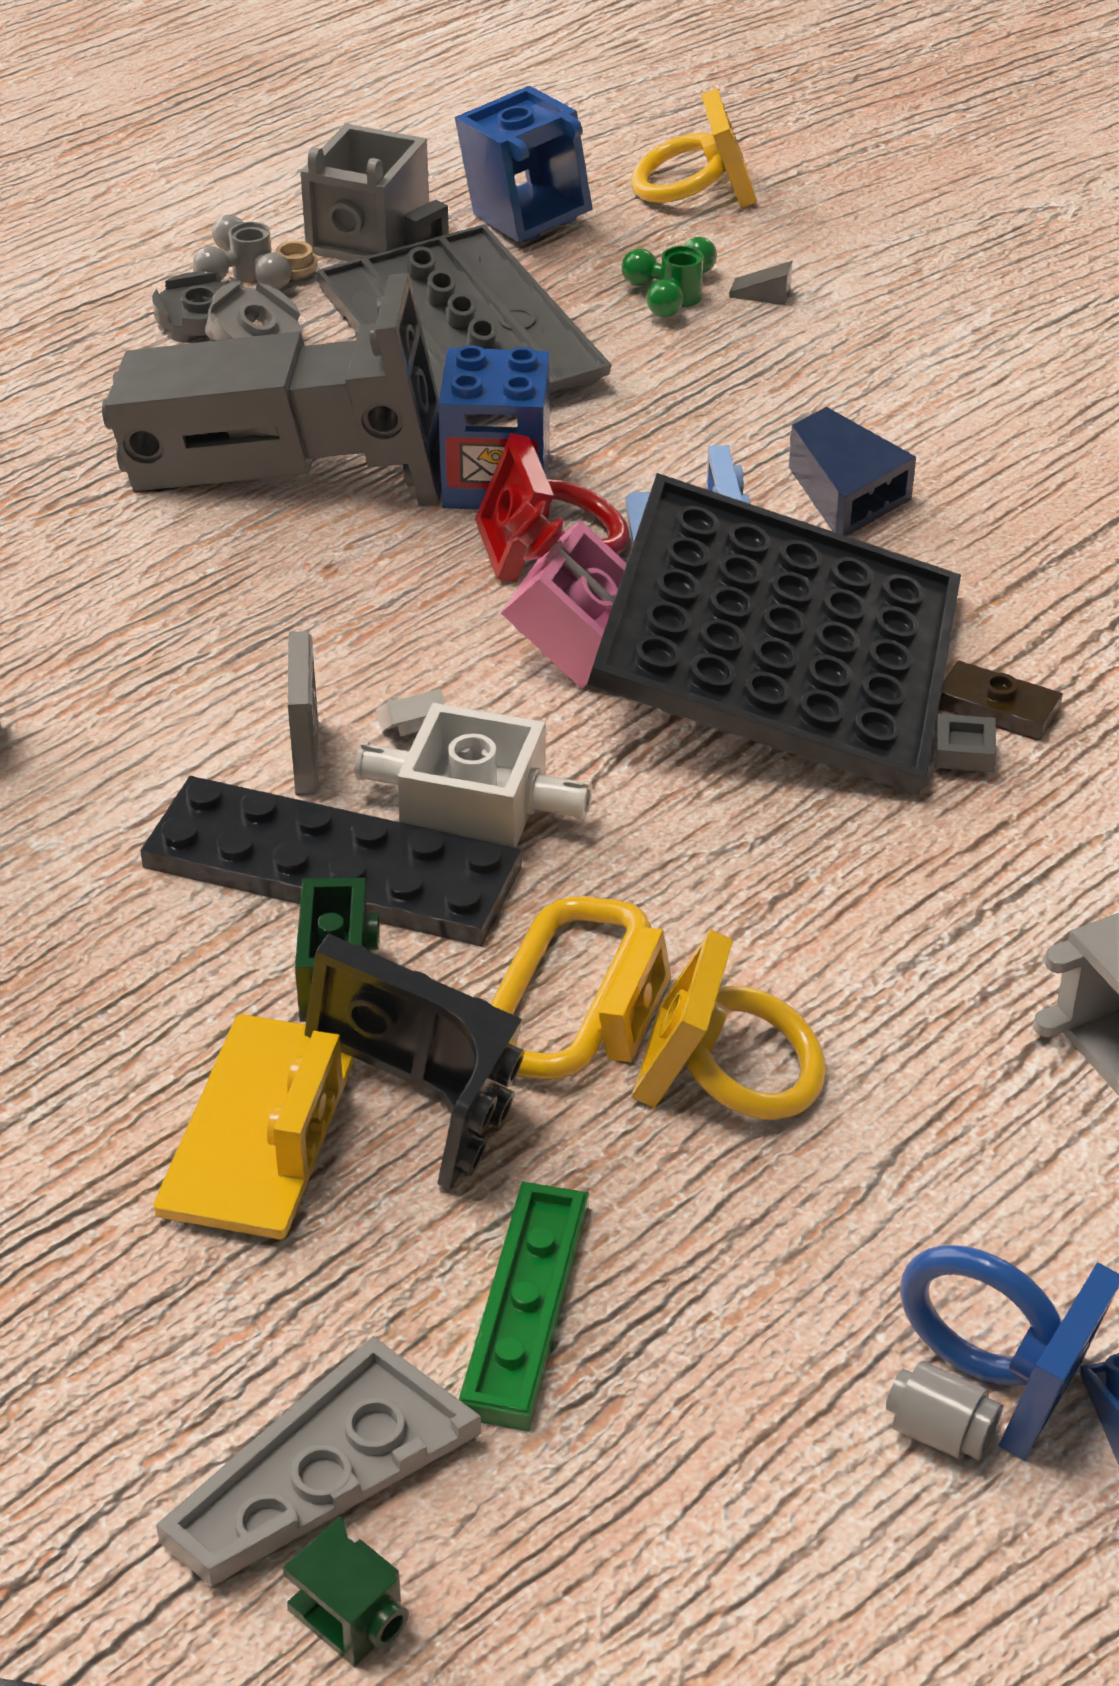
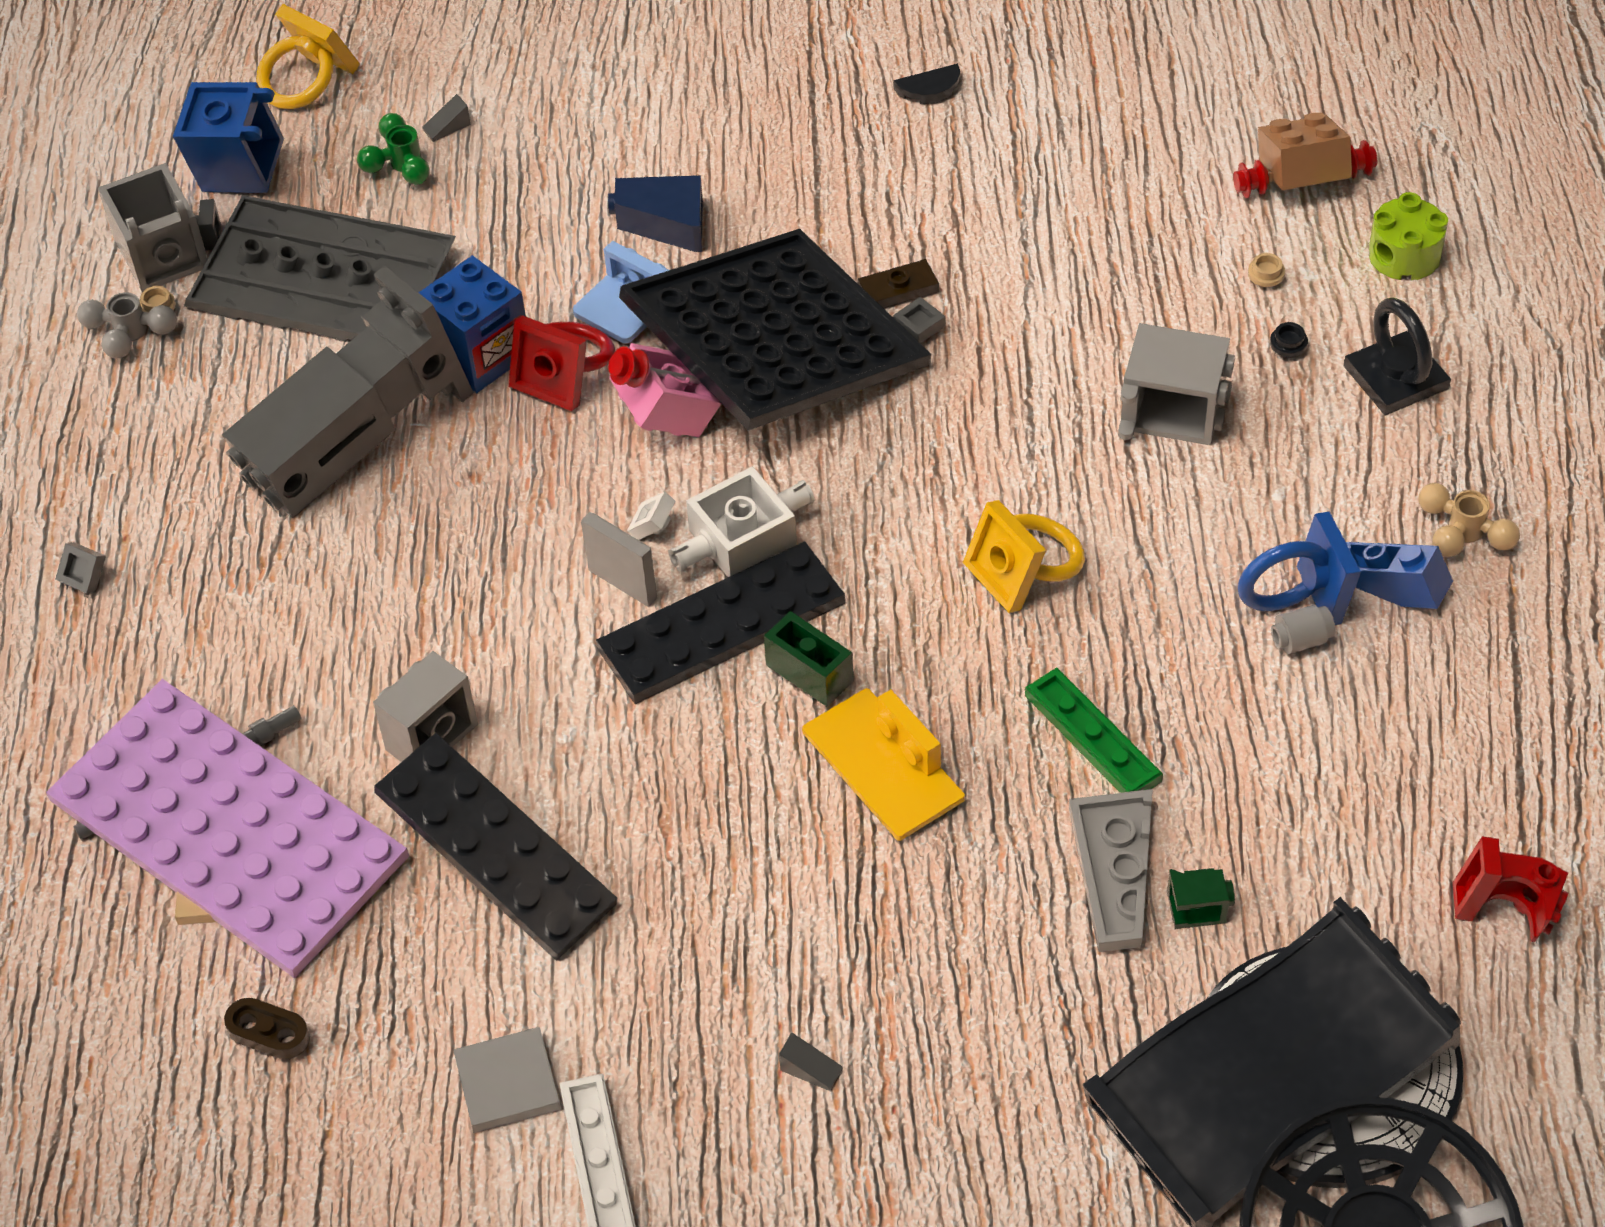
camera: 45 degrees left, 10 degrees up
(186, 304) = (152, 390): dark grey plate -> none
(237, 307) = (228, 371): light grey plate -> none
(423, 1035) = (938, 653): black bracket -> none
(624, 999) = (948, 566): yellow bar -> none

